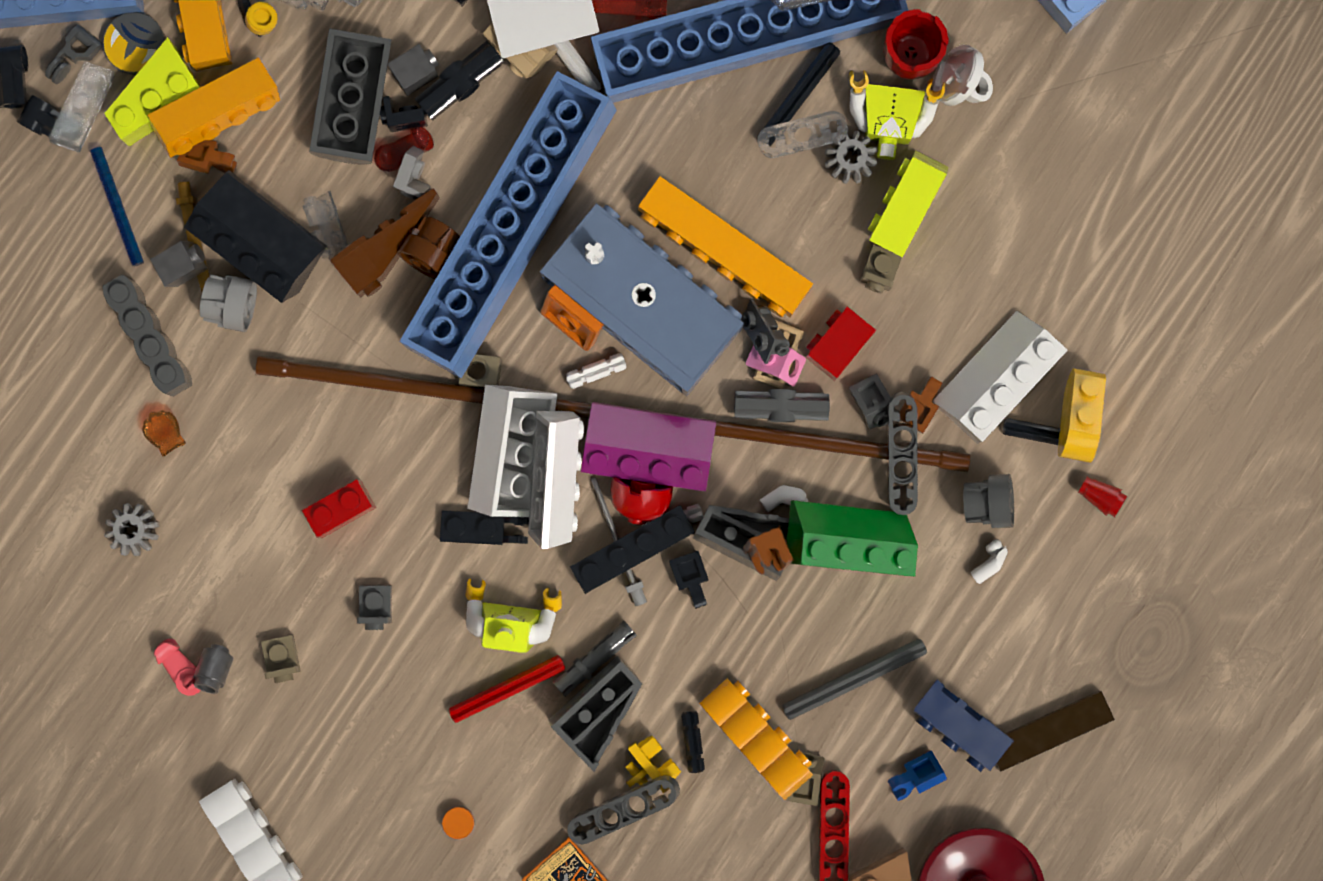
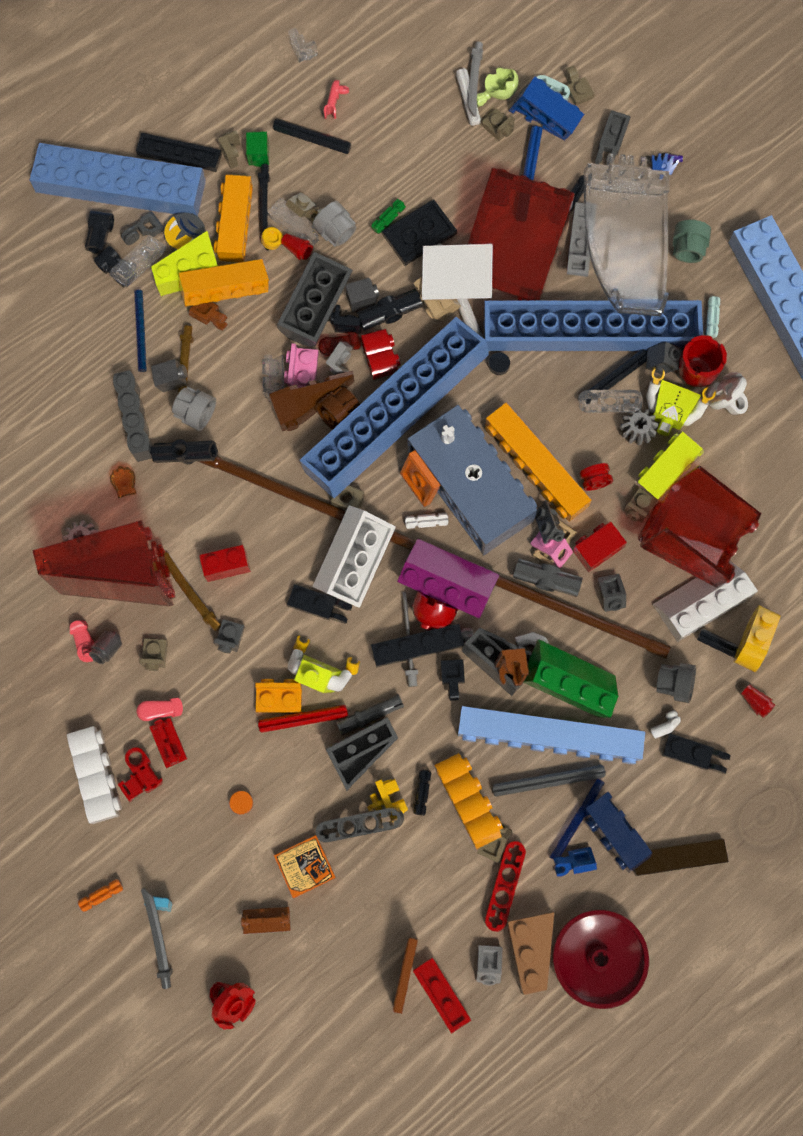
camera: 20 degrees right, 10 degrees down
(193, 559) = (109, 566): none -> clear red windscreen
(249, 366) = (194, 451): none -> black piece
(255, 237) = (225, 370): black slope -> none
(302, 21) = (297, 246): none -> red cone
(308, 733) = (159, 709): none -> coral piece
(319, 828) = (144, 778): none -> red piece
(336, 771) = (168, 742): none -> red hinge
(339, 587) = (208, 617): none -> pearl gold sword
(361, 200) = (302, 366): none -> bright pink bracket
(464, 150) = (379, 354): none -> red brick
(465, 670) = (278, 697): none -> light orange bracket
(554, 477) = (378, 580): white slope -> none
(634, 117) = (499, 363): none -> black tile
(811, 247) = (596, 477): none -> red wheel
(841, 618) = (551, 734): none -> light blue brick
(860, 50) = (664, 357): none -> dark grey brick
(905, 453) = (620, 630): dark grey beam -> none
(905, 719) = (577, 819): none -> clear blue bar
(925, 407) = (643, 605): dark orange plate -> none
(967, 285) = (699, 526): none -> clear red windscreen
(1034, 589) = (693, 753): none -> black hinge

